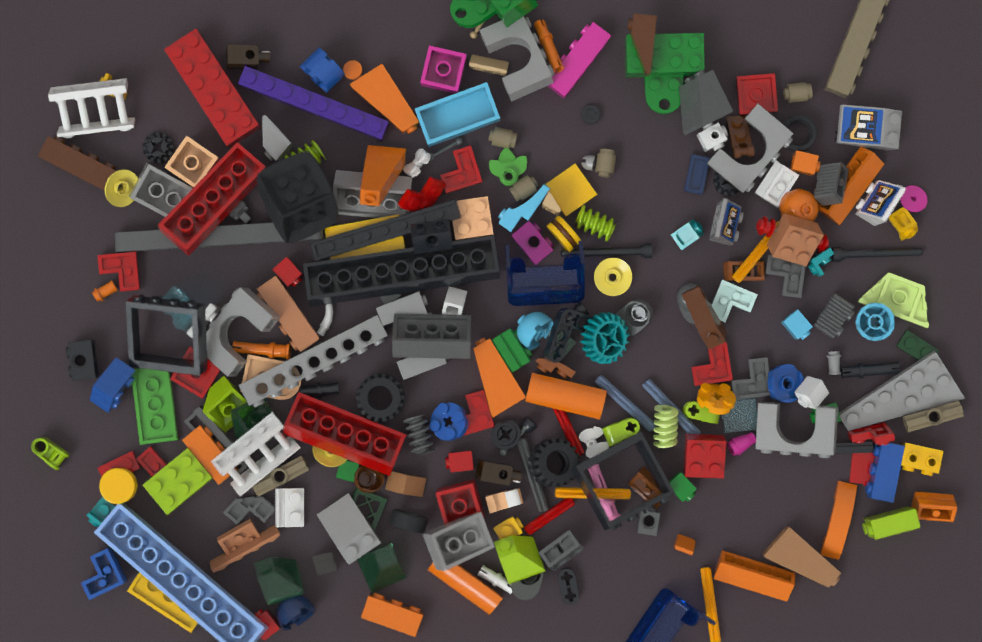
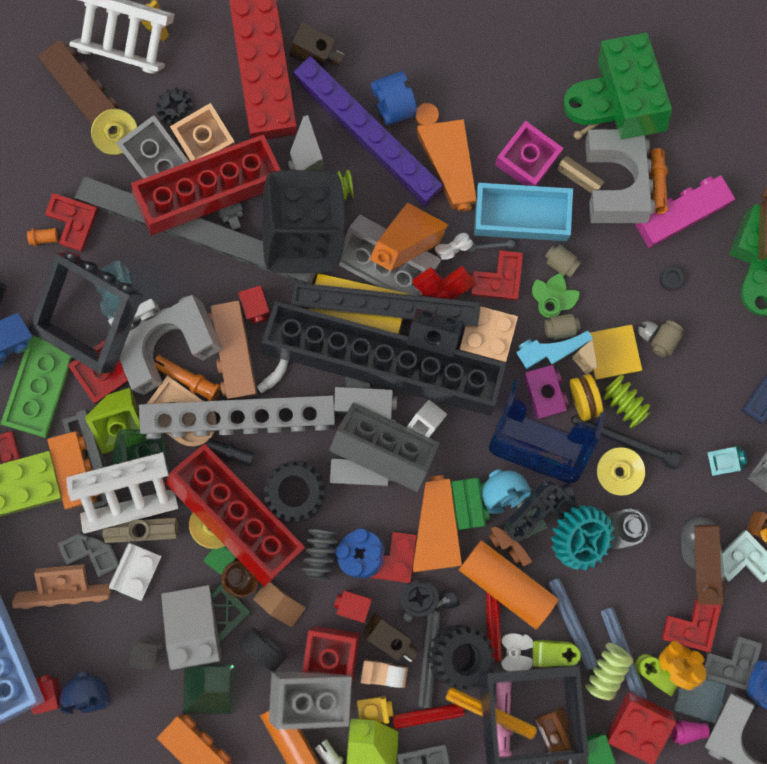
camera: 25 degrees right, 5 degrees down
(278, 579) = (83, 649): clear green slope -> none

